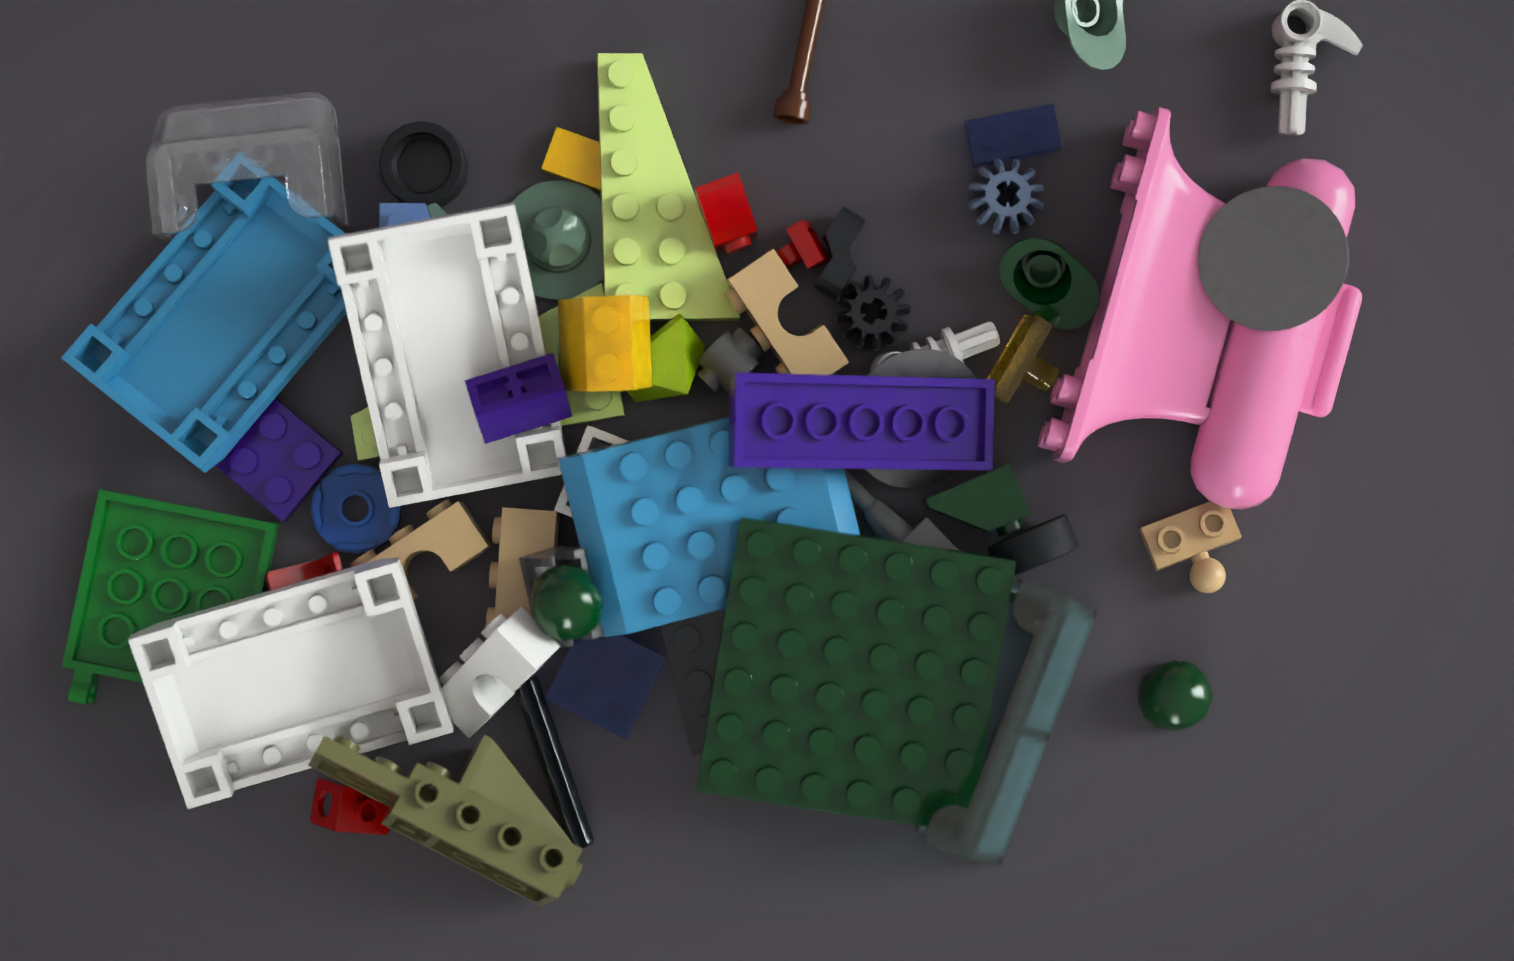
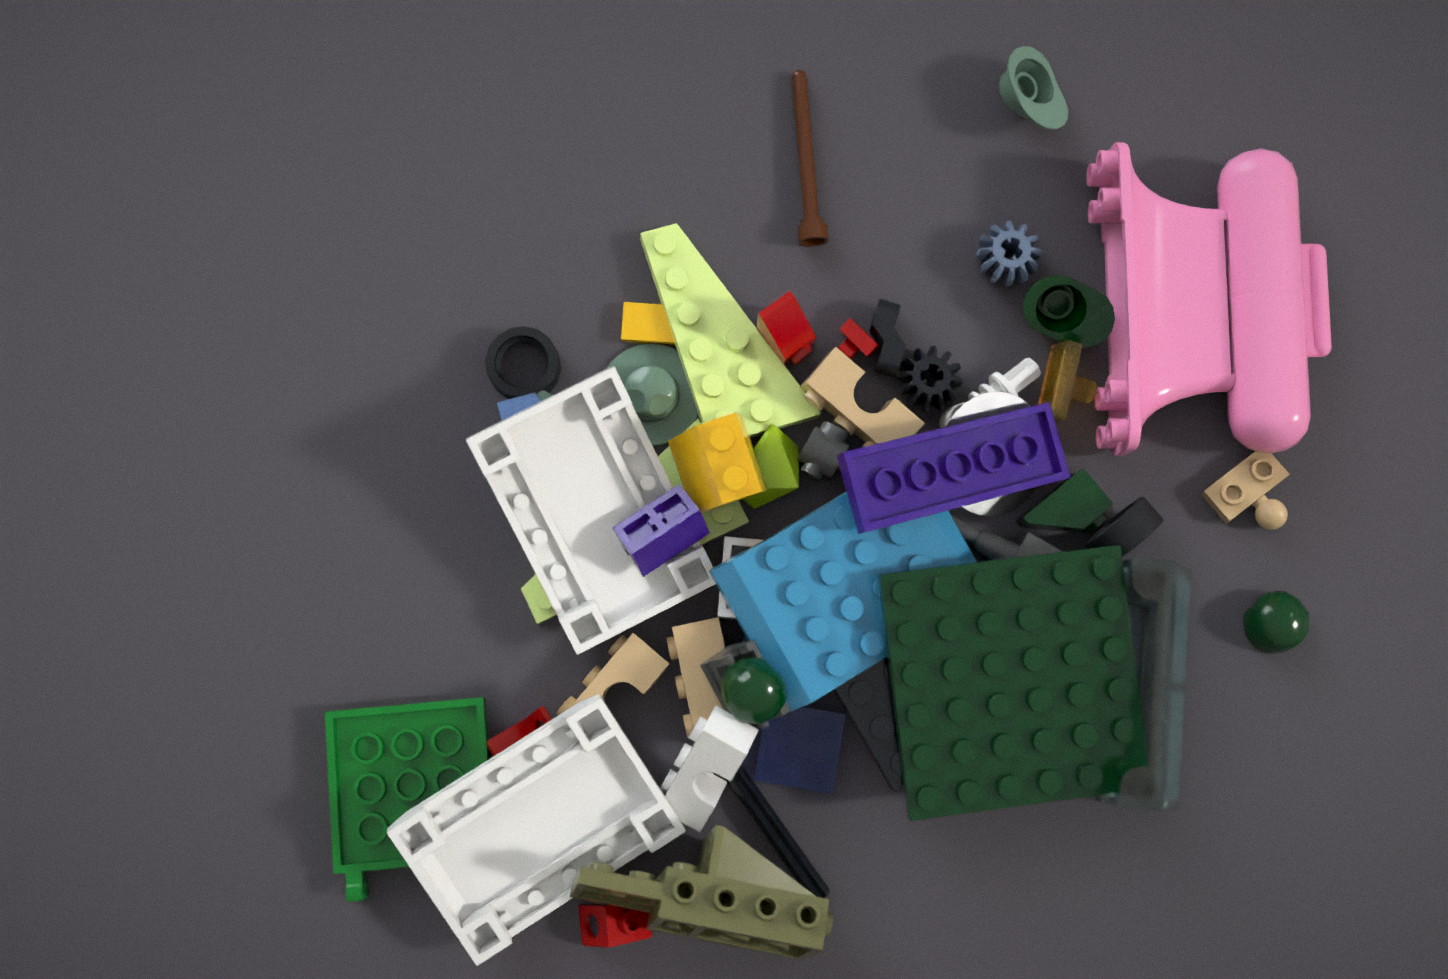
camera: 20 degrees left, 5 degrees down
(218, 320) = (388, 536): dark azure slope -> none
(245, 141) = (366, 387): clear windscreen -> none
(280, 460) = (451, 634): dark purple plate -> none
(330, 515) = (524, 672): blue tile -> none
(1013, 135) = (997, 204): clear blue plate -> none
(1273, 258) = (1249, 236): flat silver sticker -> none
(1294, 57) = (1204, 74): white piece -> none

